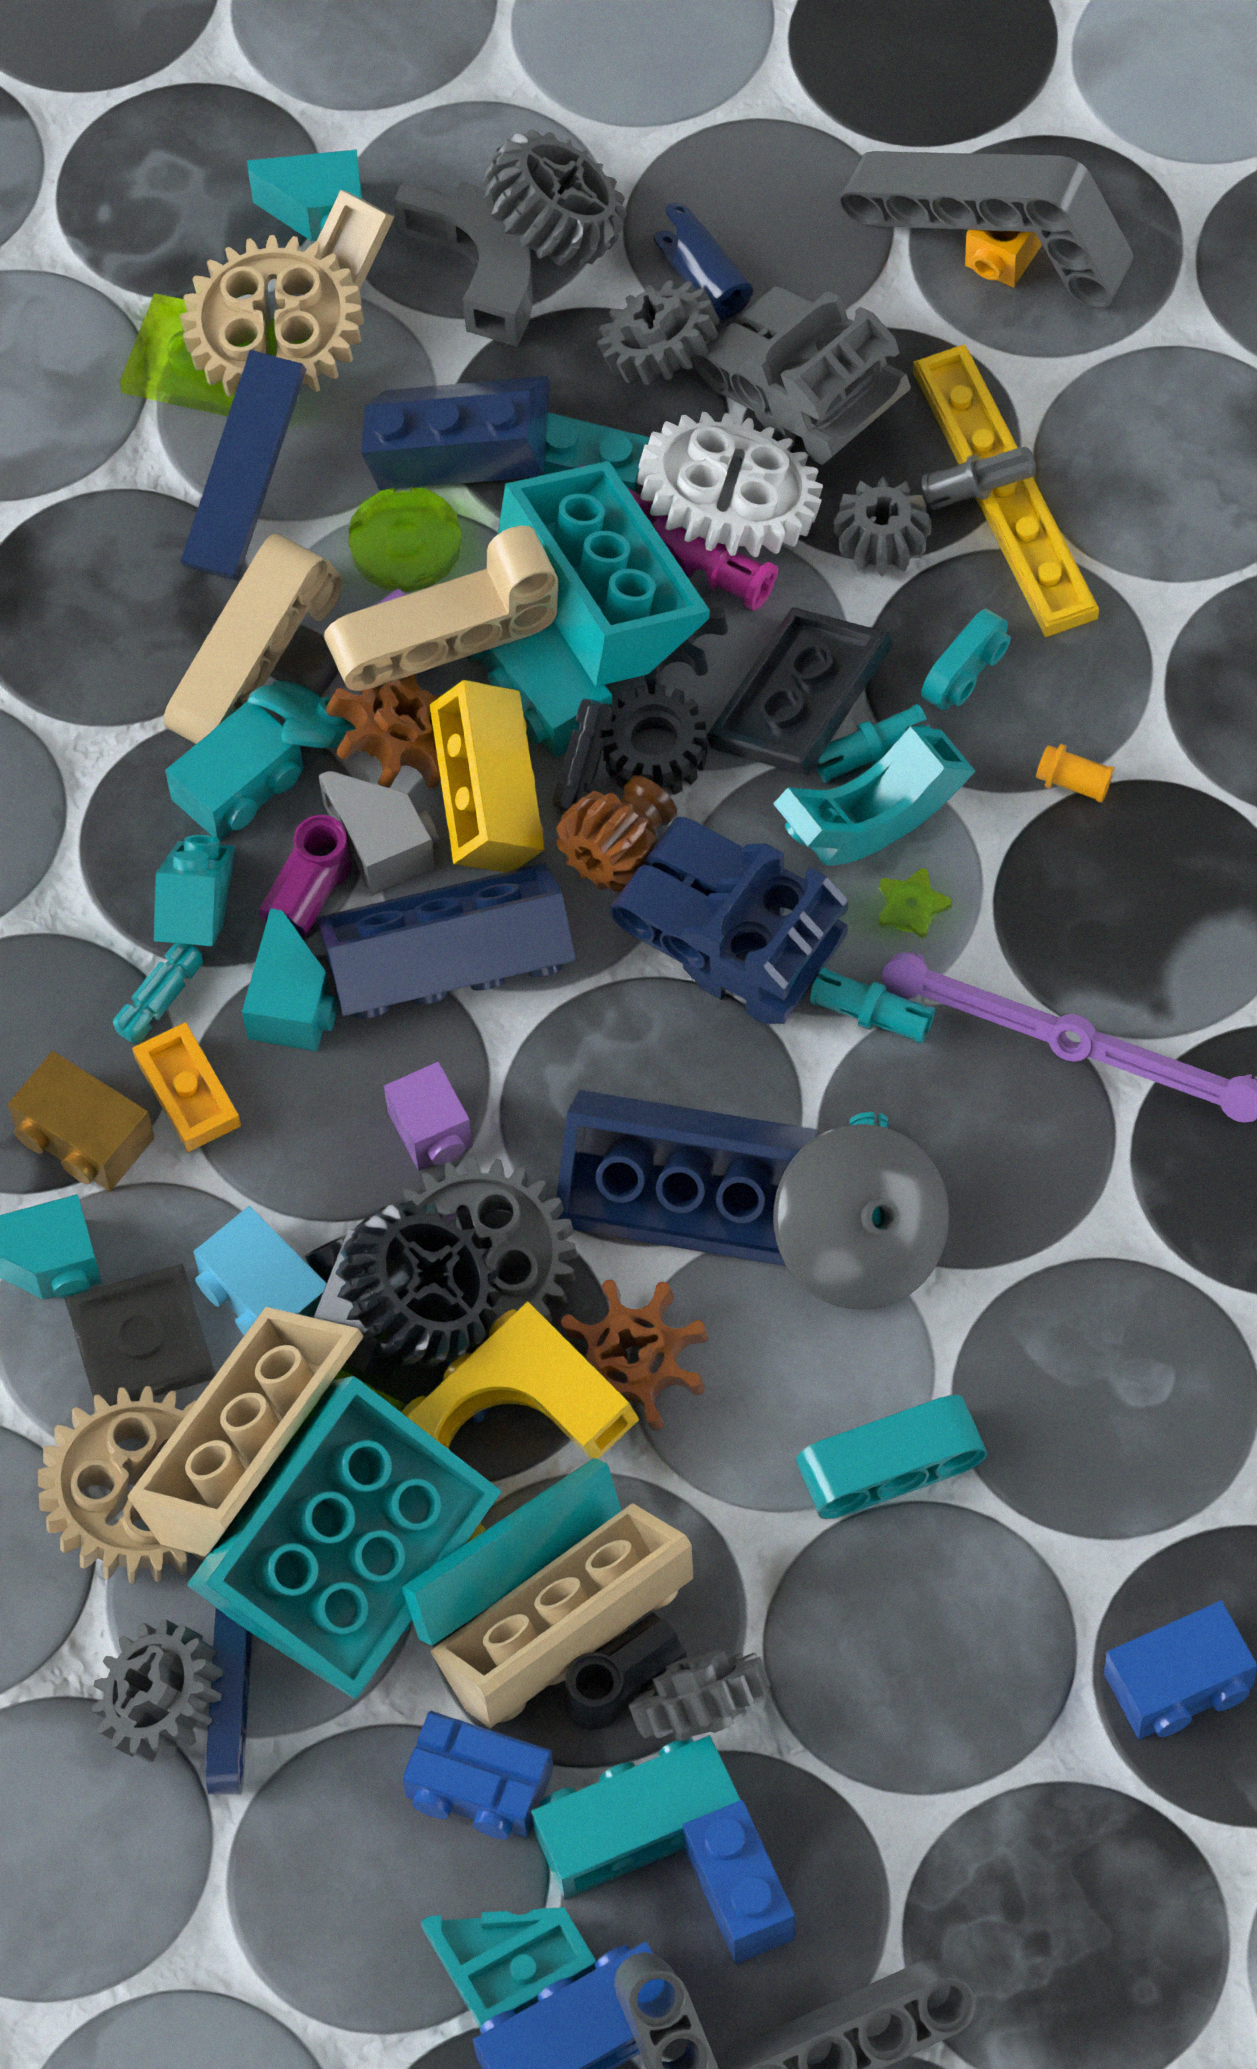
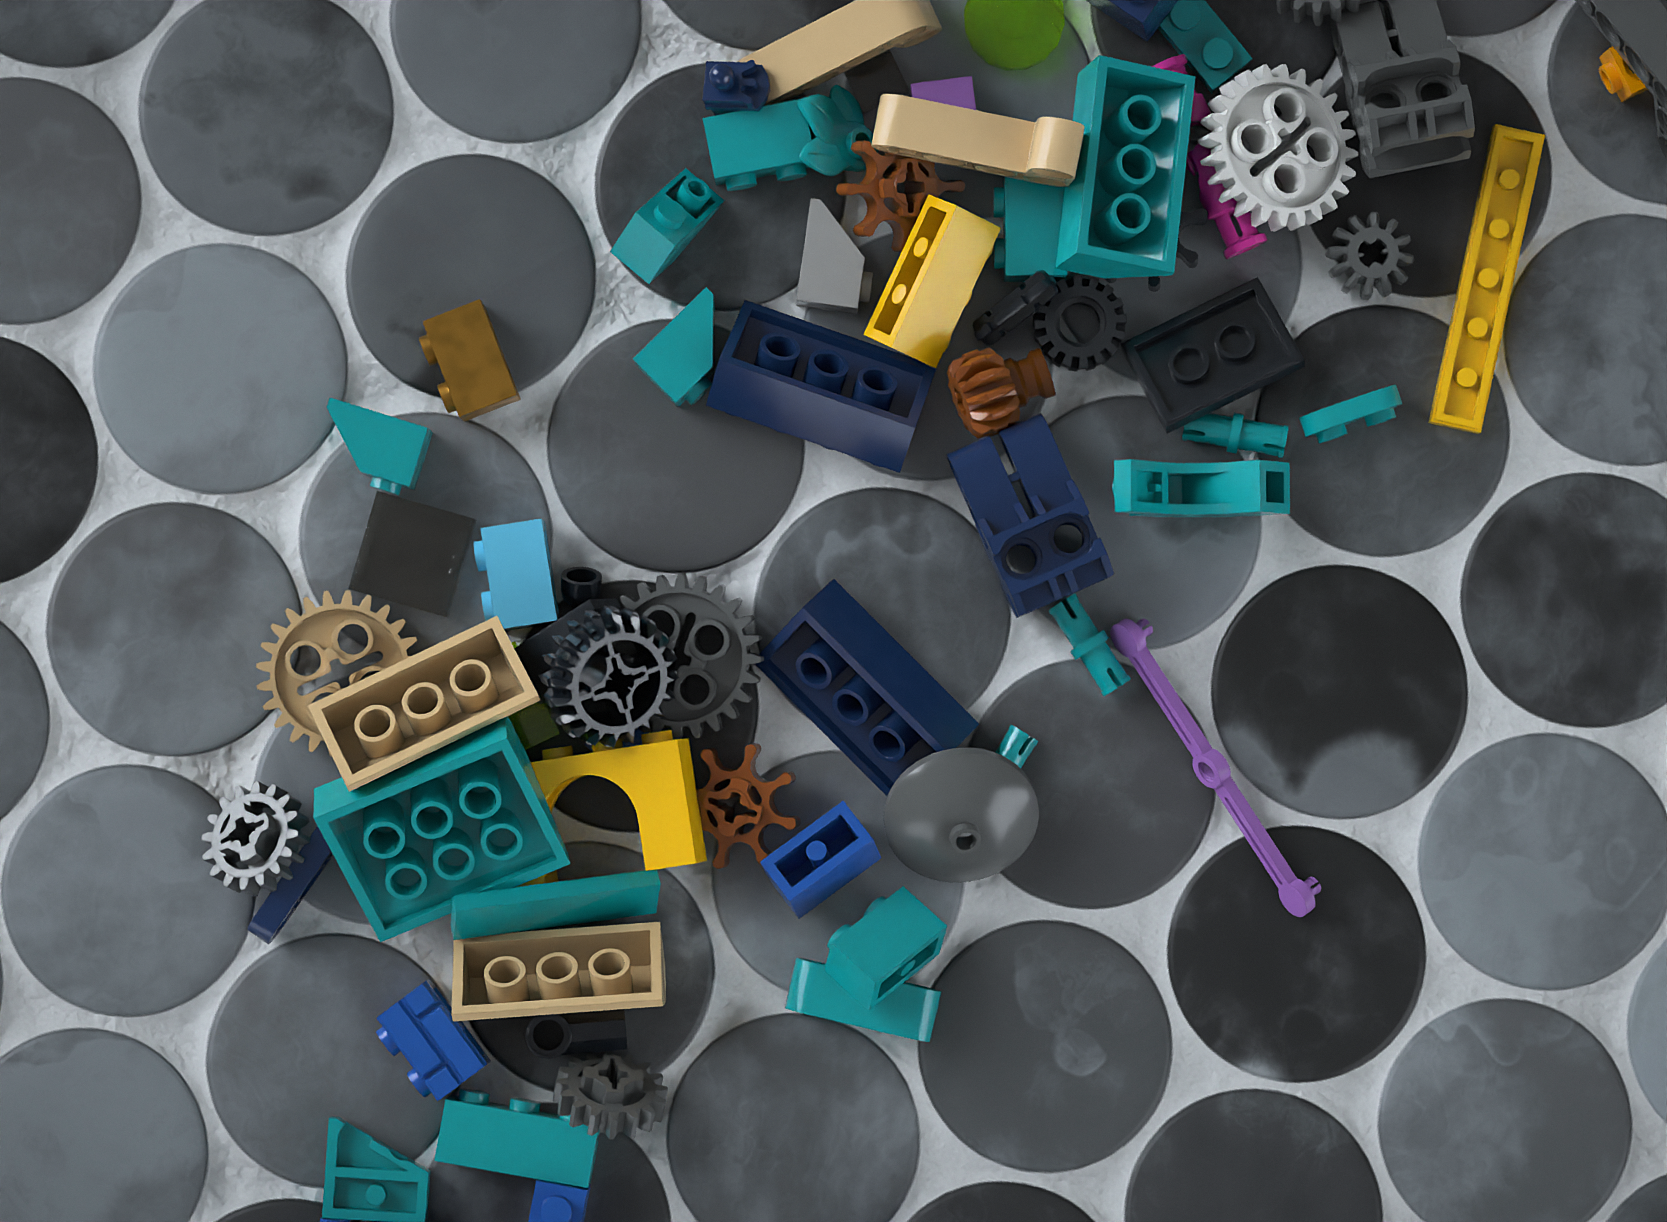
camera: 30 degrees right, 25 degrees up
(158, 992) = (589, 288): teal axle -> none
(177, 723) = (735, 87): none -> dark blue piece
(186, 1087) = (563, 381): light orange plate -> none
(307, 878) = (748, 272): magenta piece -> none
(428, 1116) = (716, 525): medium lavender brick -> none
(752, 1345) = (821, 859): none -> blue brick
(876, 1378) = (884, 947): none -> teal brick
(909, 918) = (1171, 596): clear neon green plate -> none
(977, 477) = (1467, 266): dark grey axle -> none
(1074, 773) = (1365, 557): light orange pin -> none

